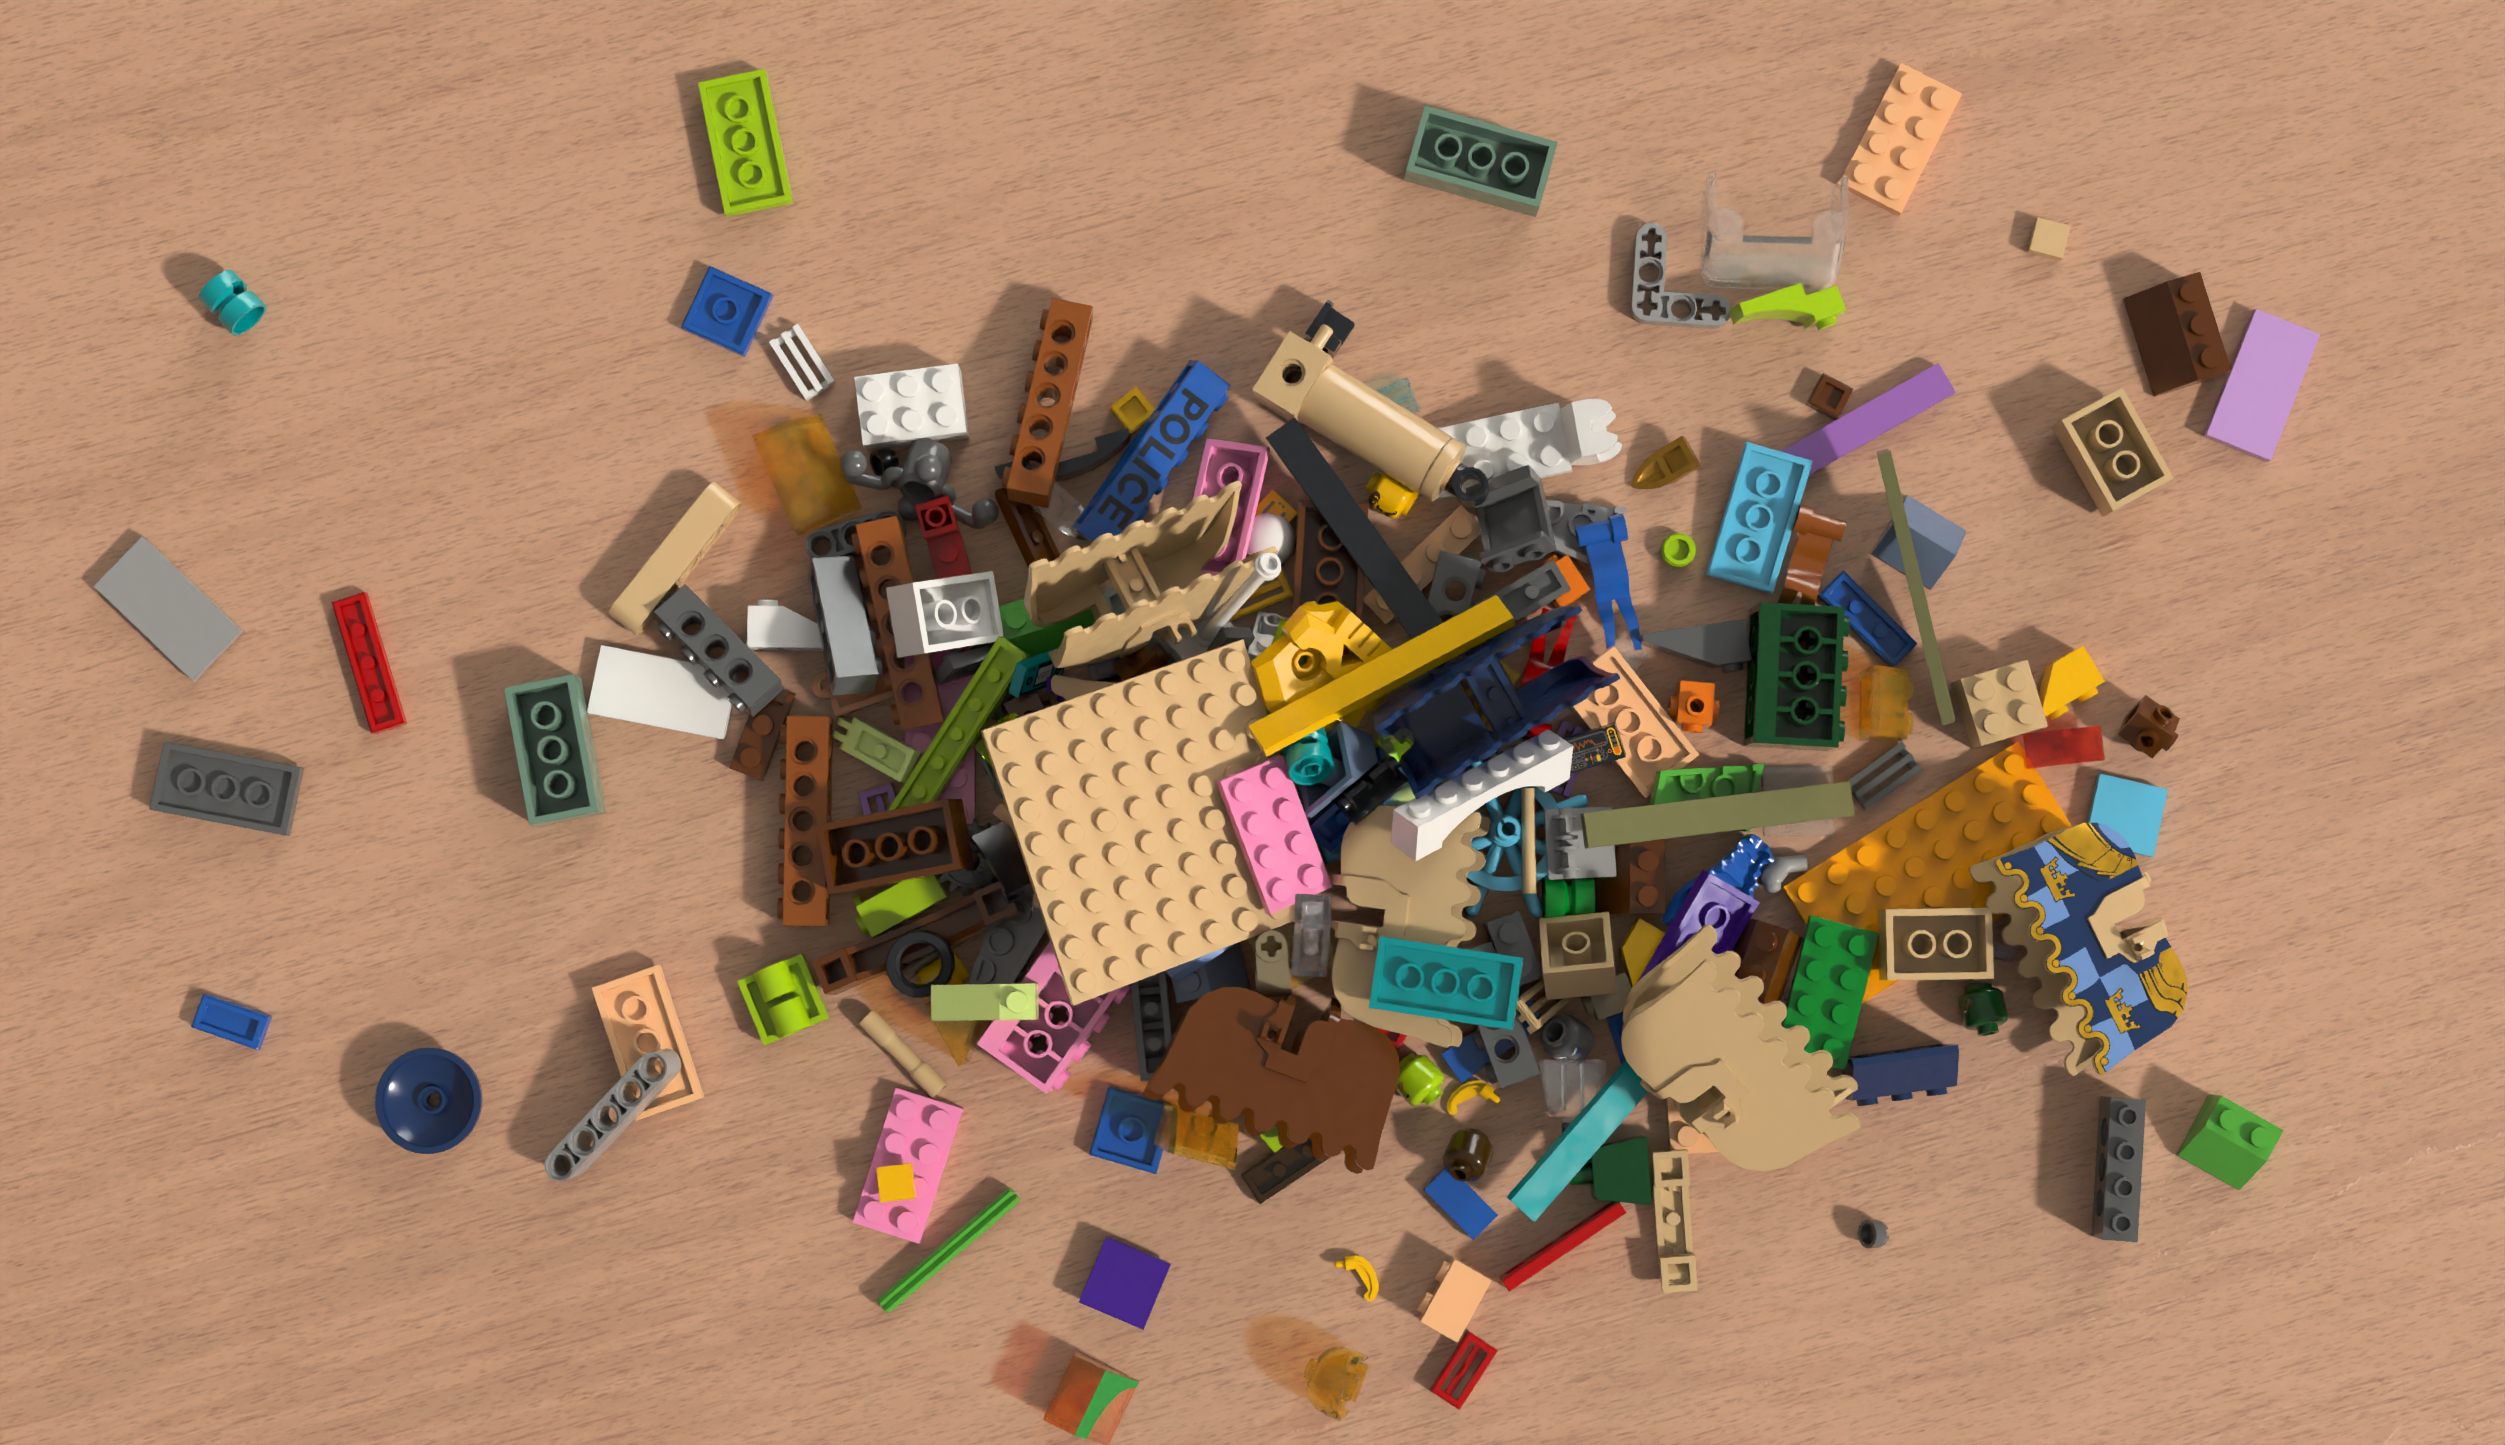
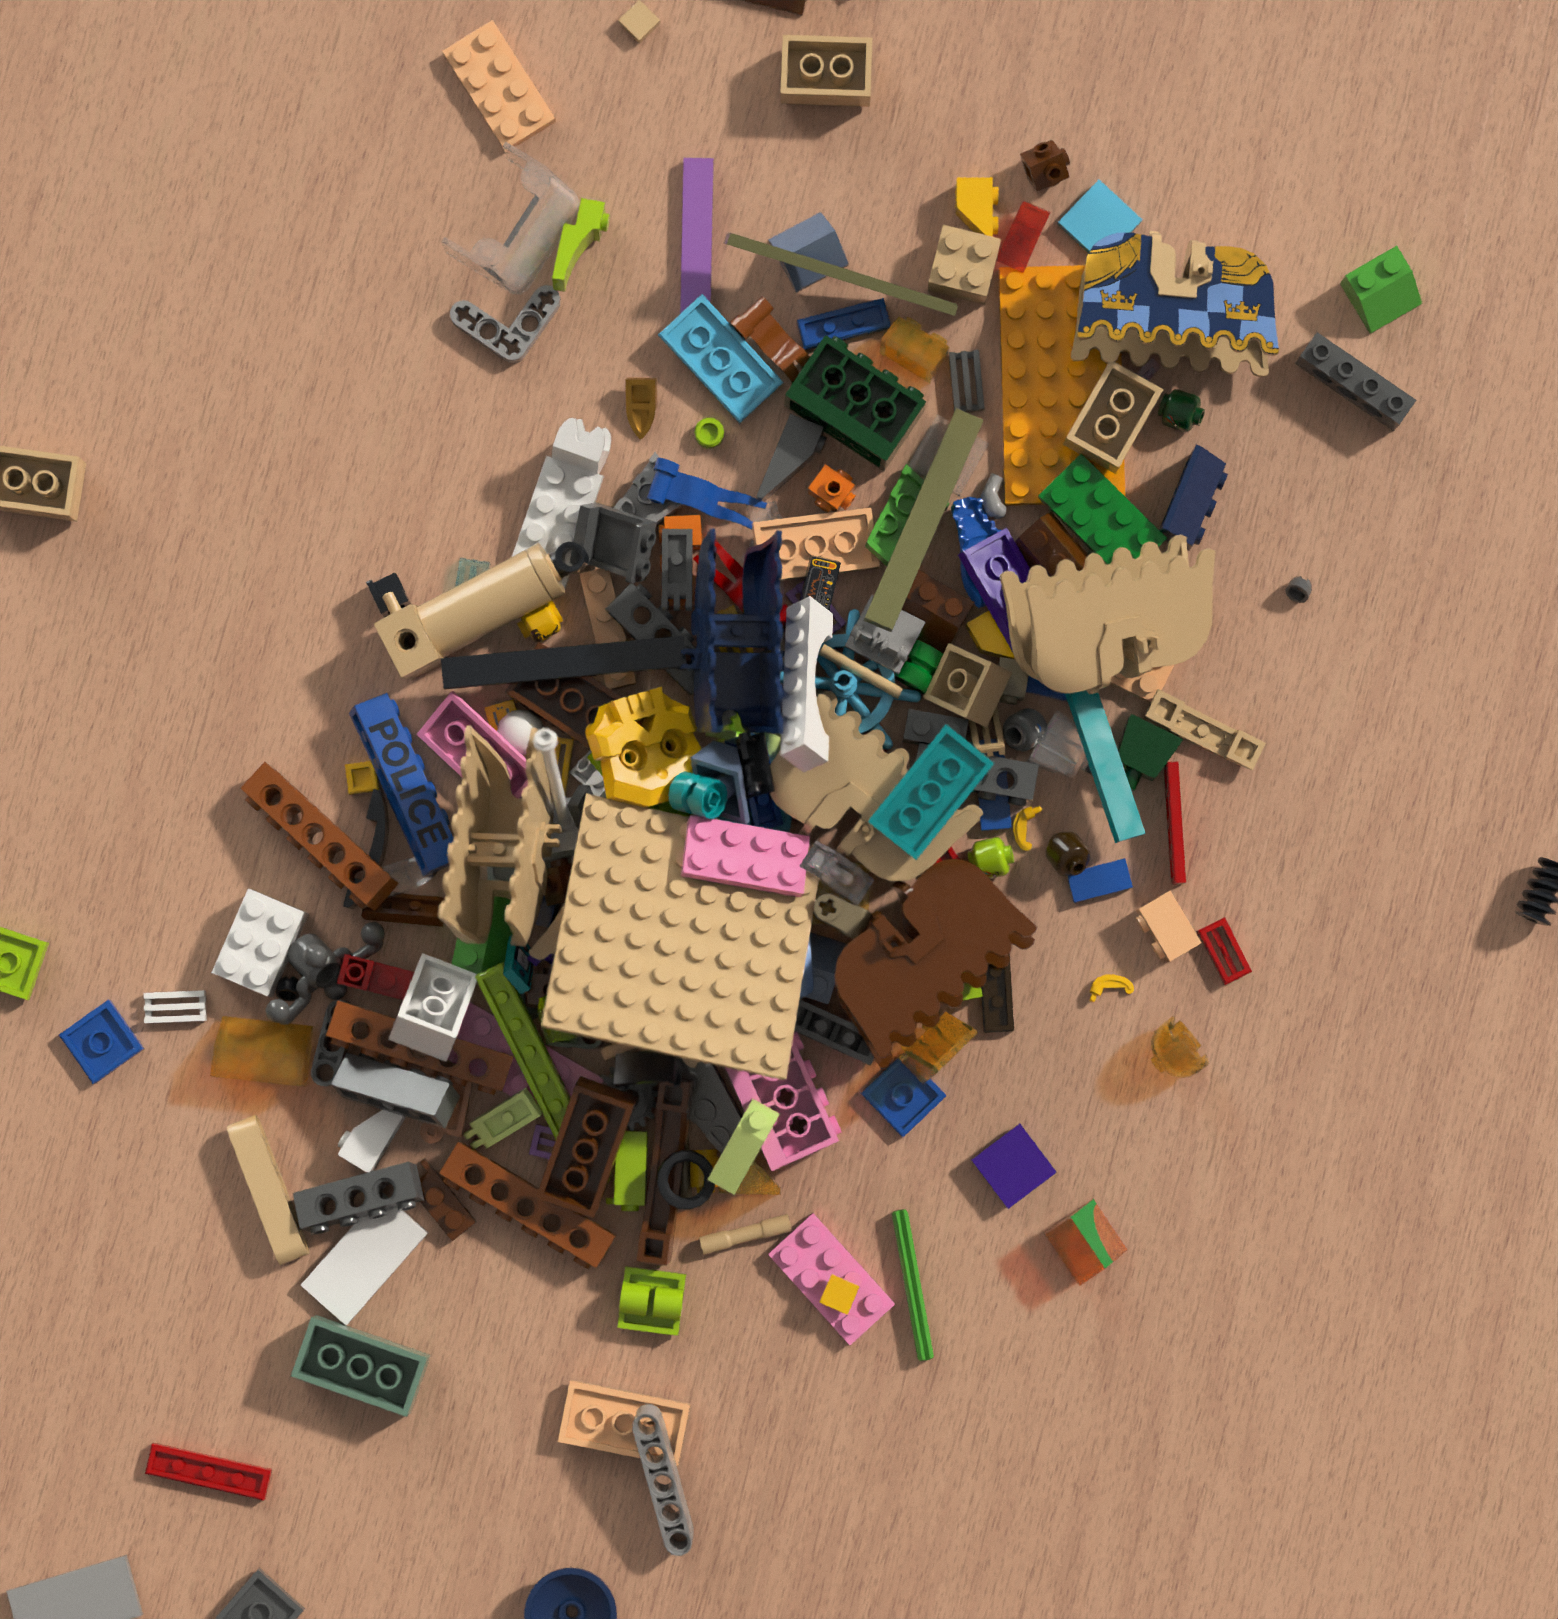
camera: 55 degrees left, 0 degrees up
(960, 665) = (478, 1018): dark grey plate -> none
(1381, 675) = (674, 706): yellow tile -> none
(1480, 161) = (329, 406): sand green brick -> none
(1829, 396) = (660, 253): reddish brown tile -> none

